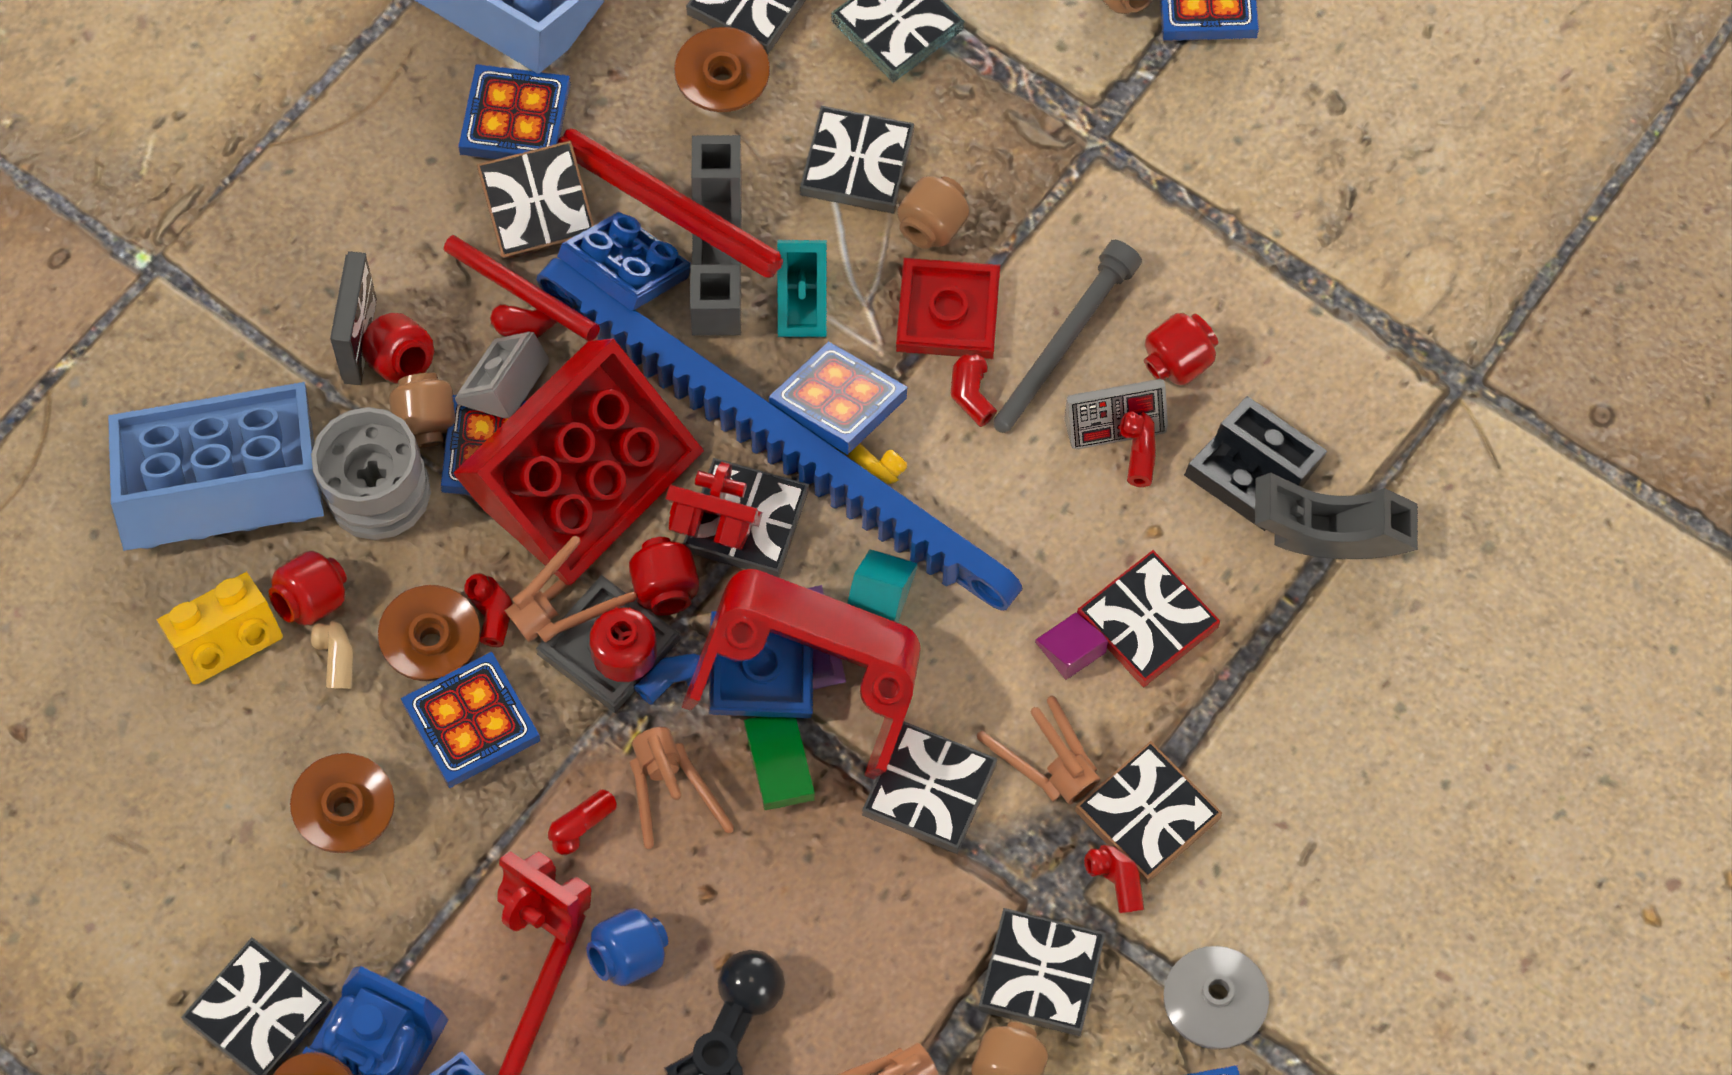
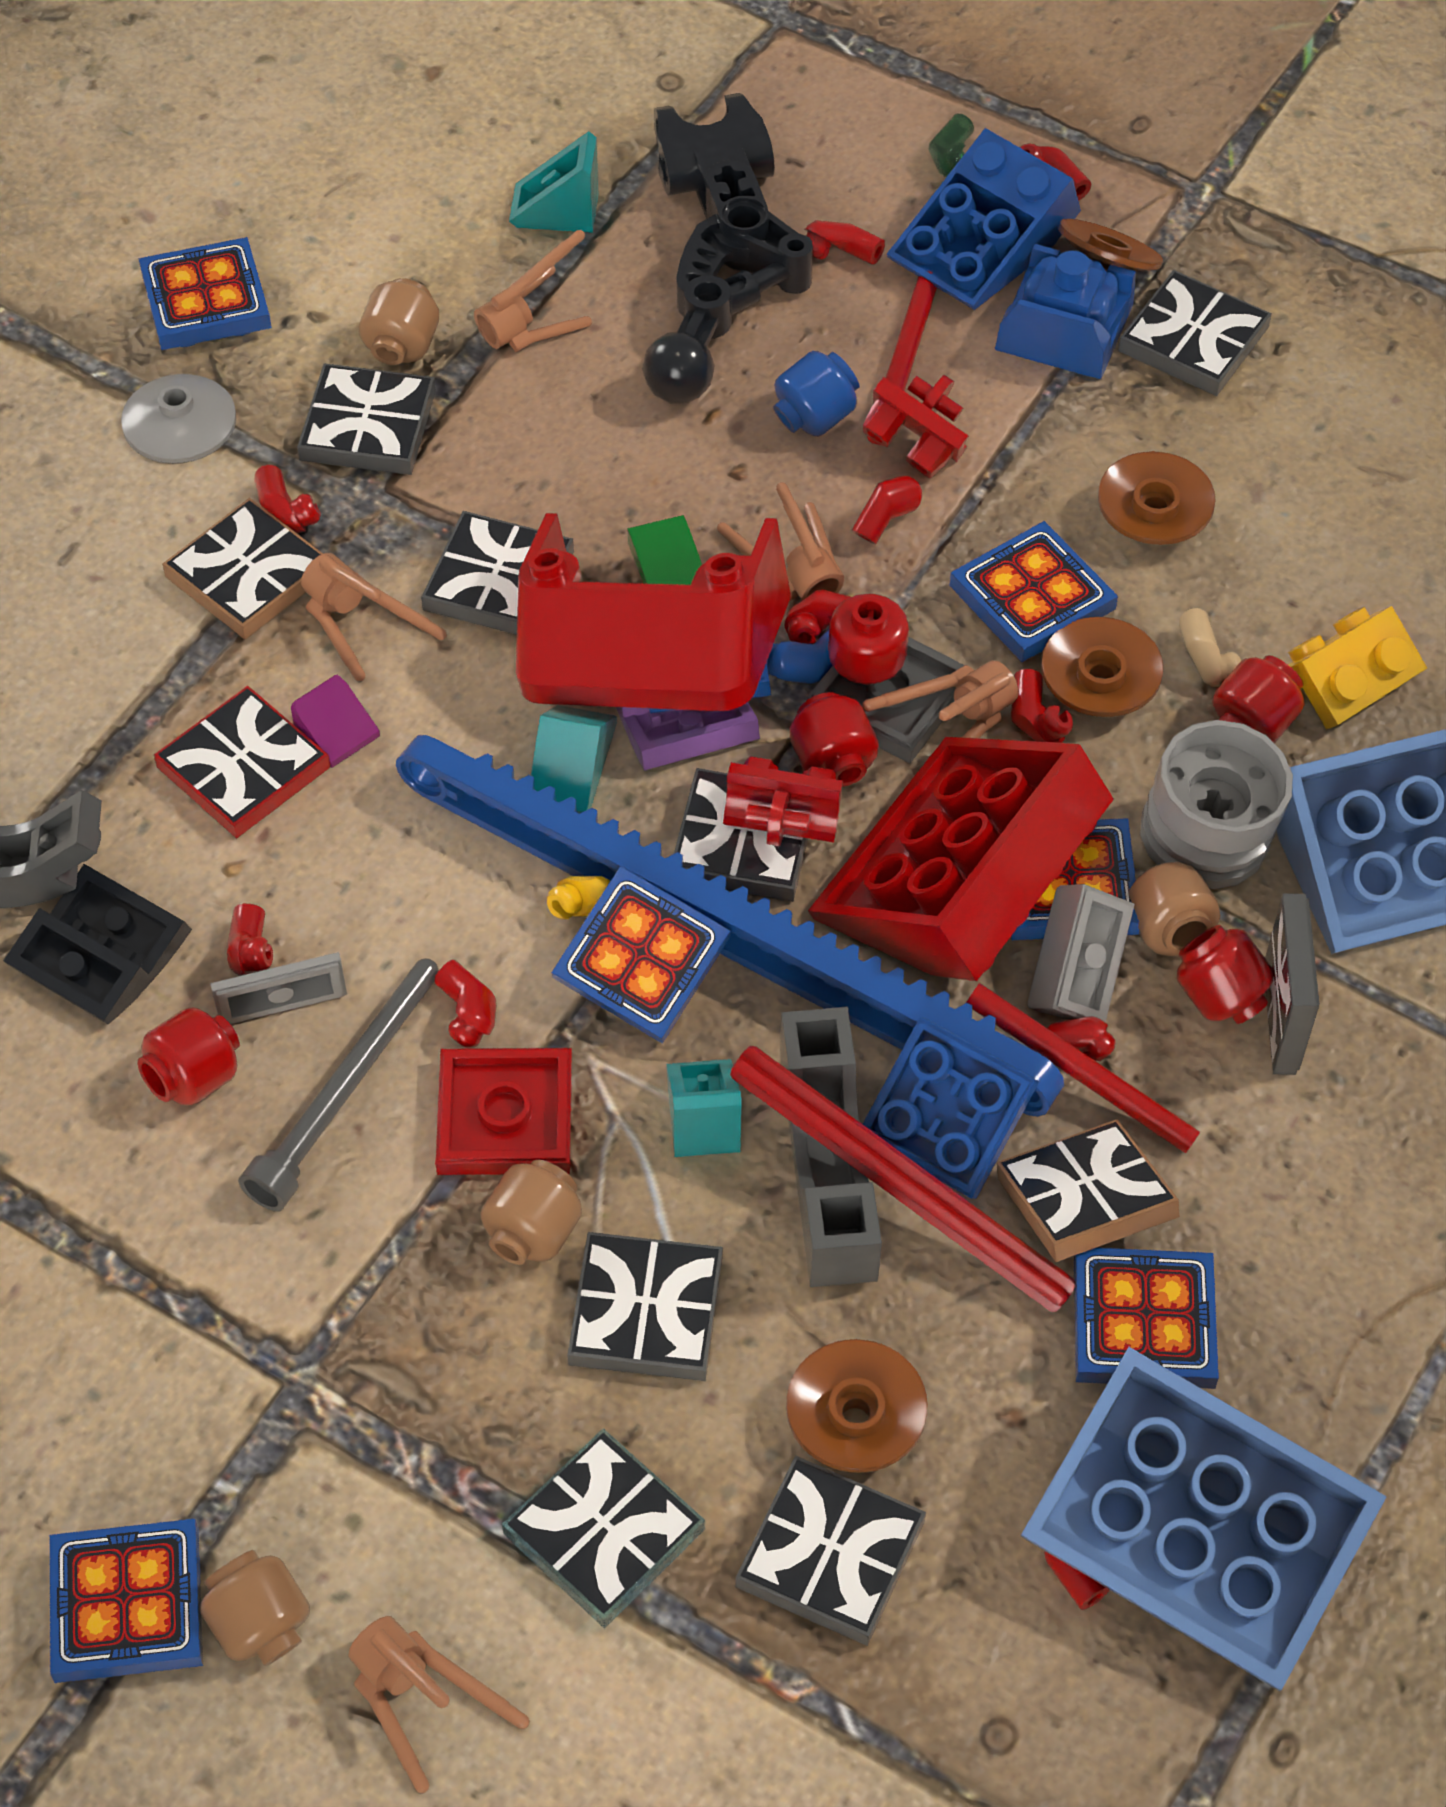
camera: 175 degrees right, 10 degrees down
(647, 717) = (812, 616): none -> red arm

